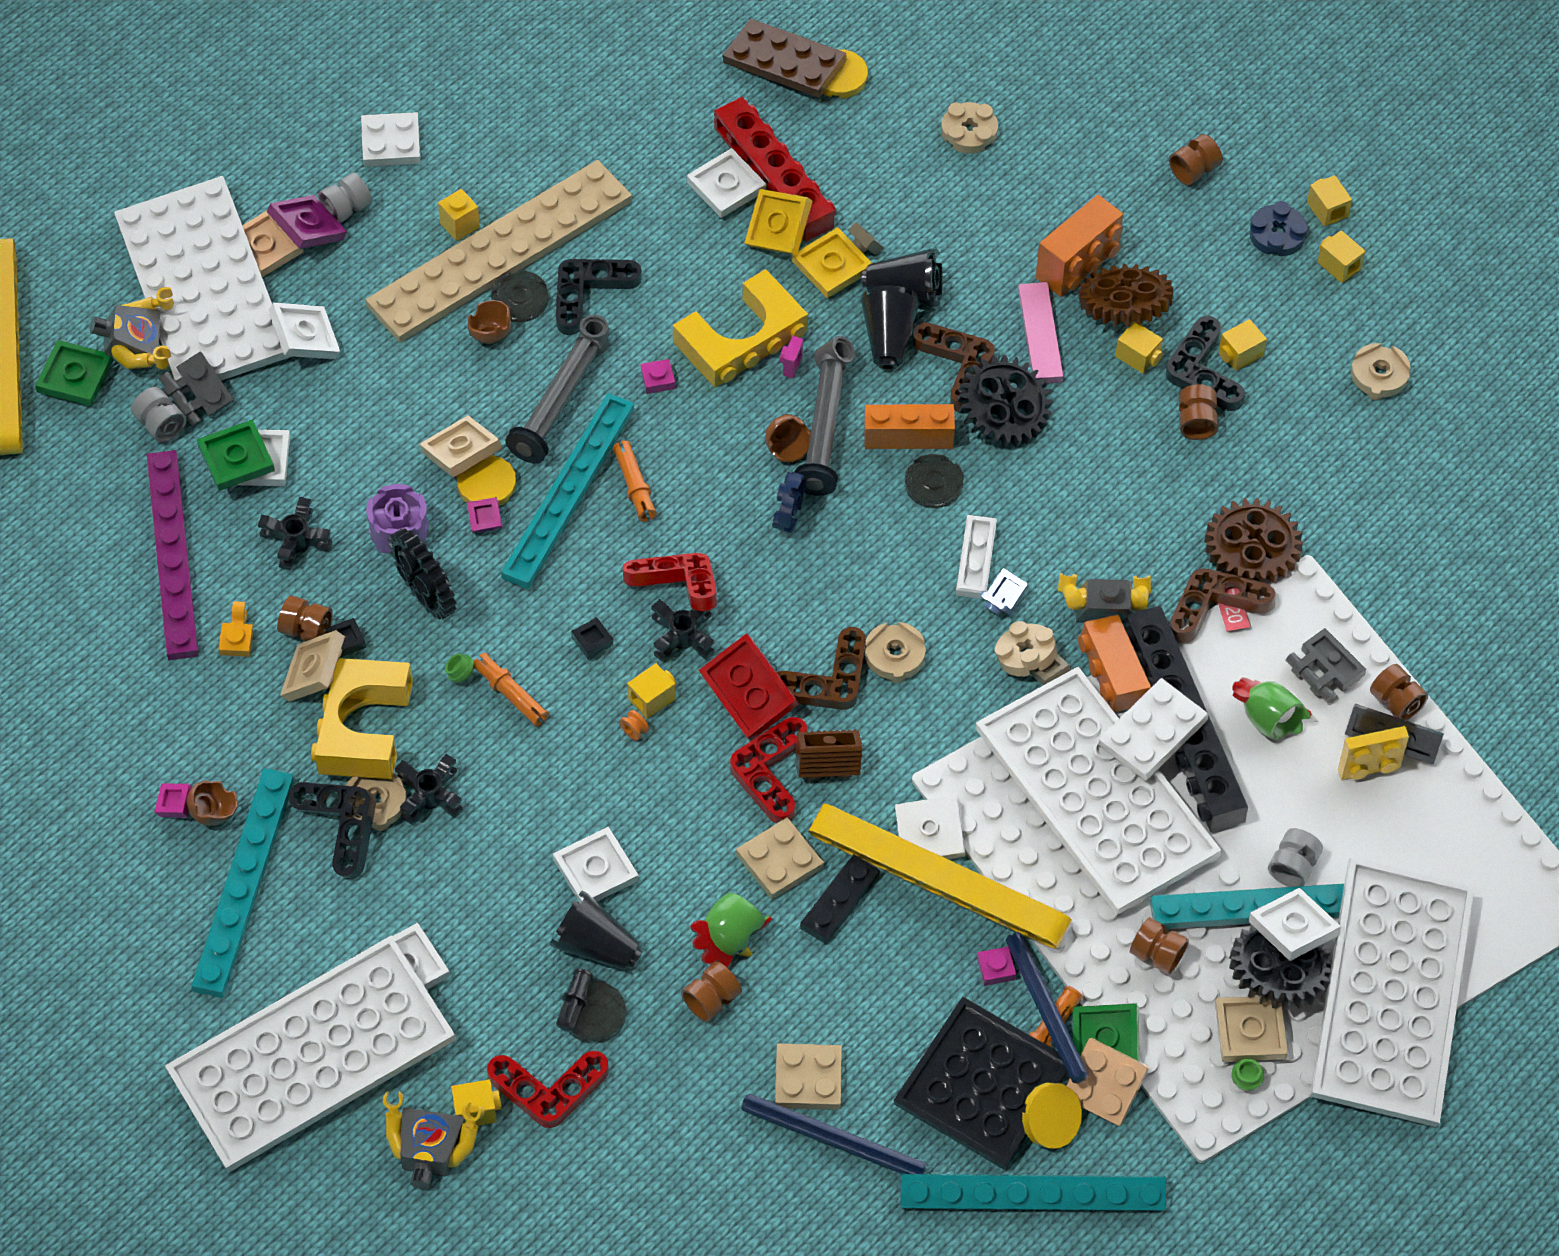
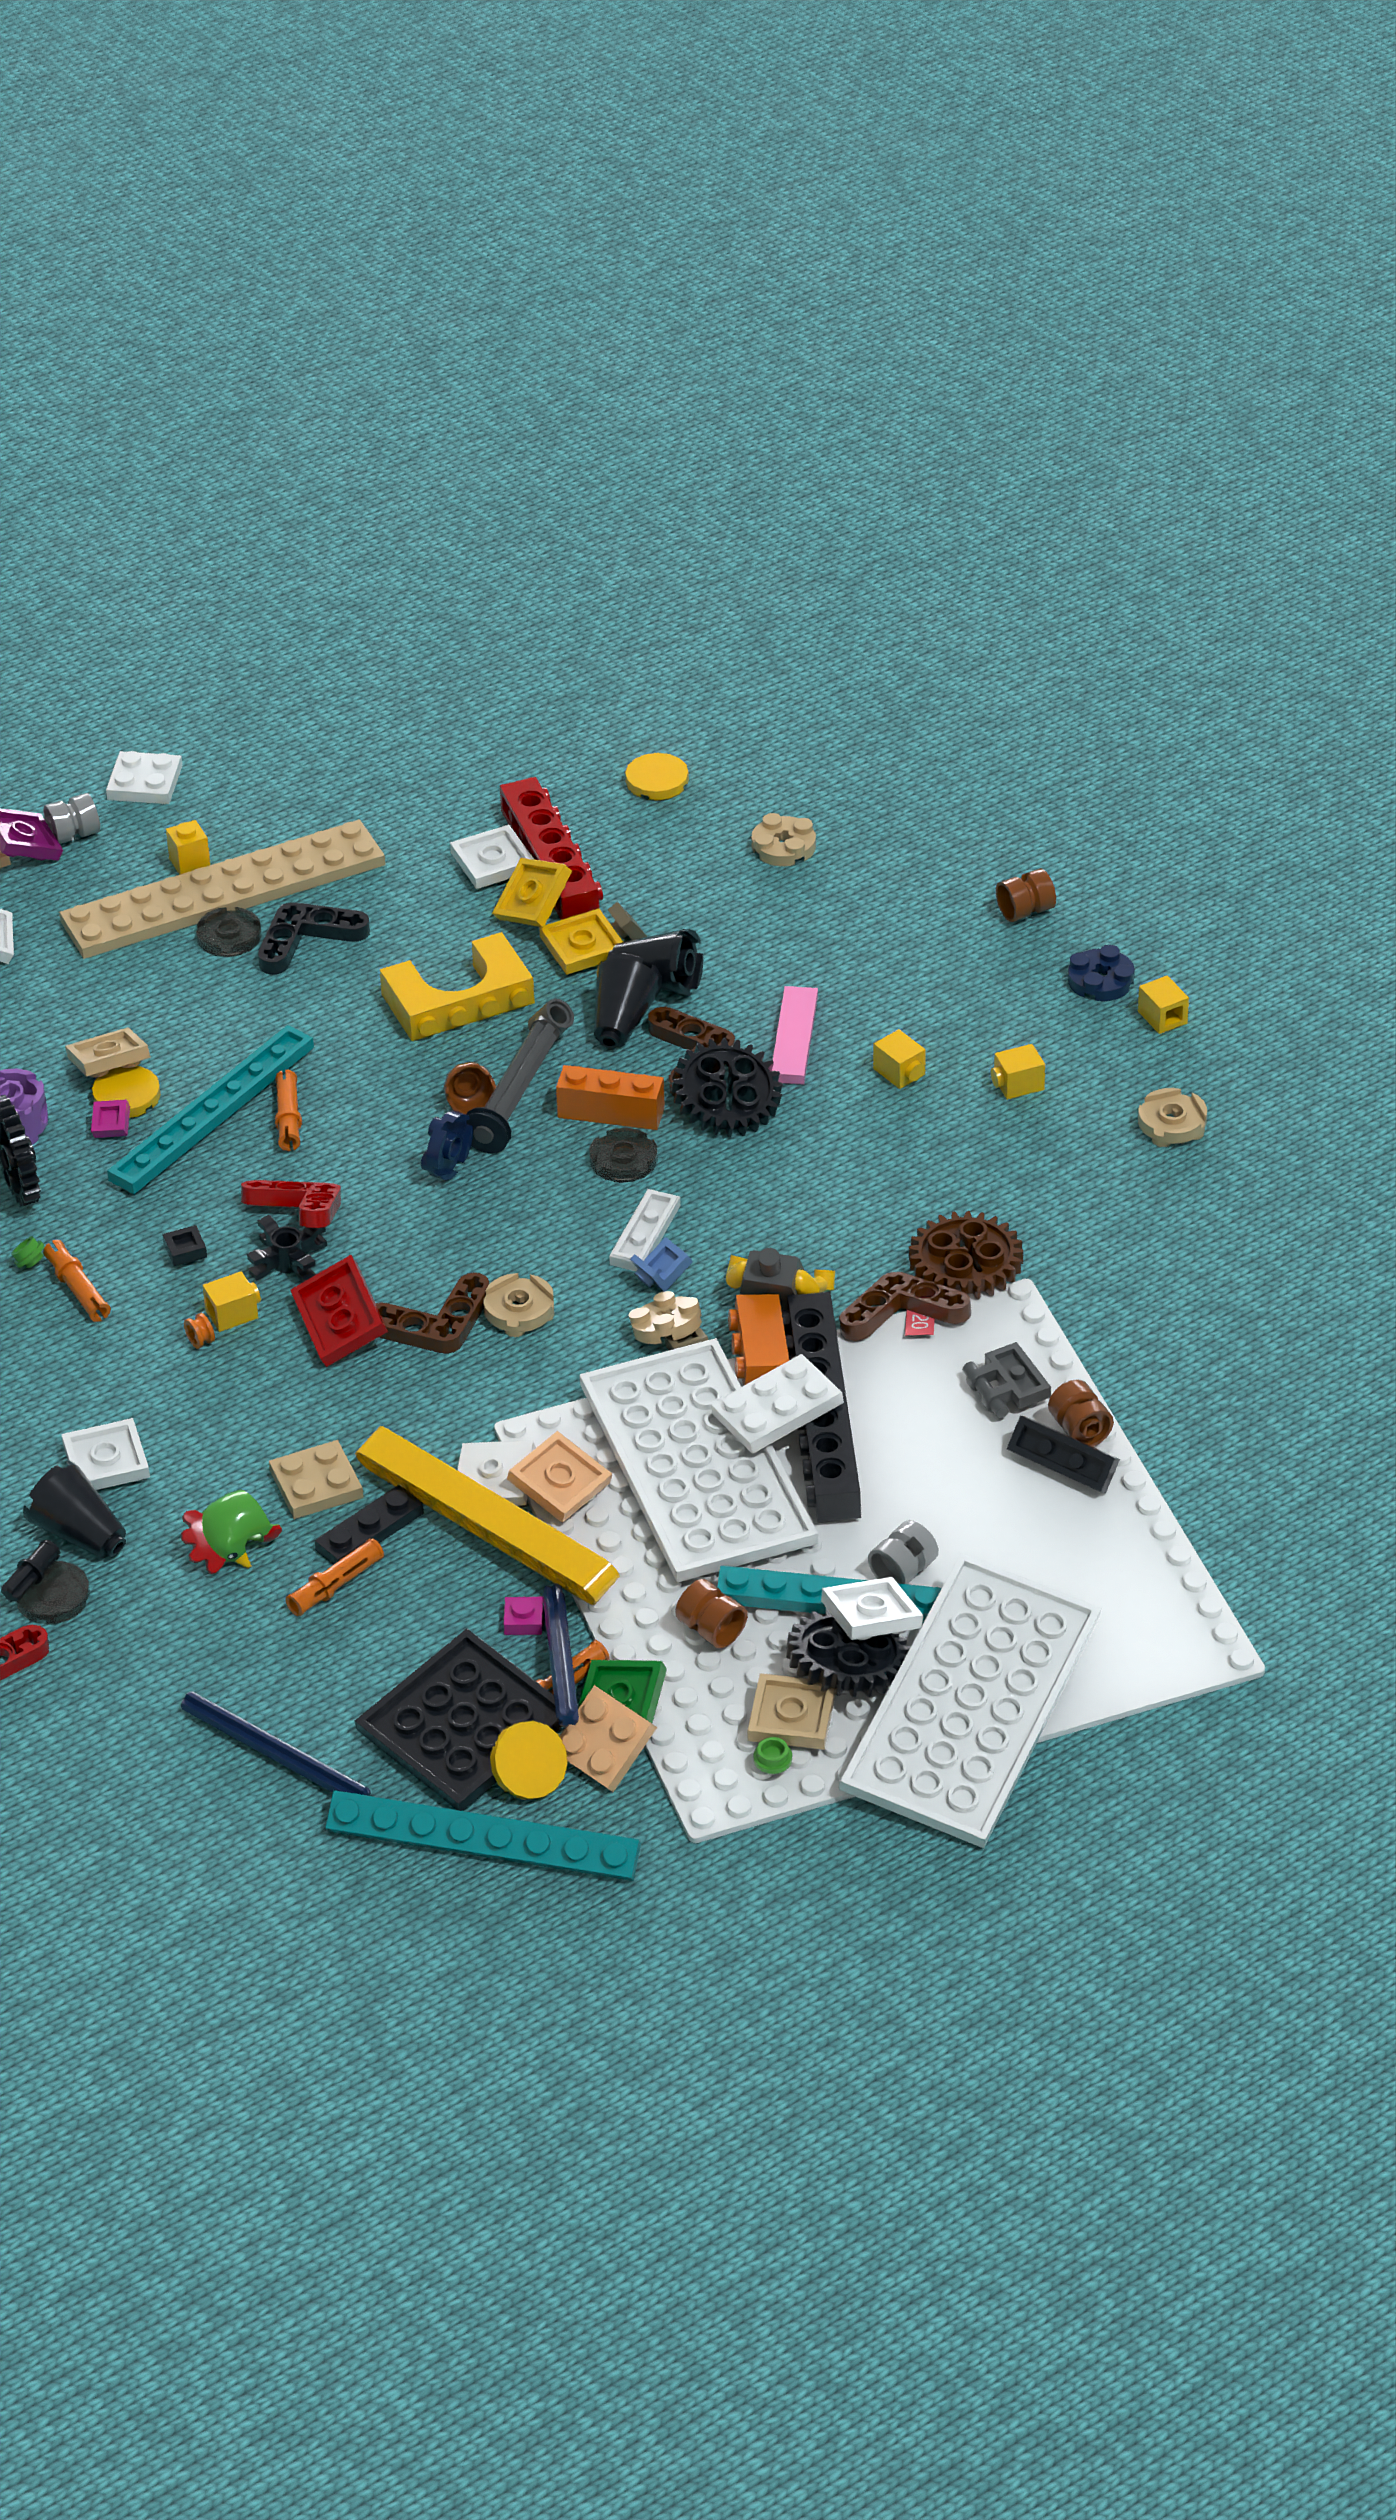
camera: 15 degrees right, 15 degrees down
(490, 322) = (185, 948): dark orange hair -> none
(528, 441) = (182, 1056): dark grey piece -> none
(657, 376) = (351, 1021): dark pink plate -> none
(715, 988) = (183, 1588): dark orange wheel -> none
(759, 769) = (325, 1392): red beam -> none
(784, 57) = (599, 753): plate -> none
(792, 356) = (505, 1019): dark pink plate -> none
(808, 1076) = (270, 1688): tan plate -> none
(822, 966) = (322, 1585): none -> orange pin
(828, 754) = (402, 1383): reddish brown brick -> none
(991, 829) = (559, 1476): none -> light nougat plate
(1079, 245) = (861, 953): orange brick -> none
(1126, 294) = (900, 1006): reddish brown gear -> none
(1195, 371) = (947, 1088): black beam -> none
(1198, 412) = (944, 1125): dark orange wheel -> none
(1266, 705) = (922, 1400): bright green piece -> none
(1329, 200) = (1167, 951): yellow brick -> none
(1373, 753) = (1026, 1462): yellow plate -> none

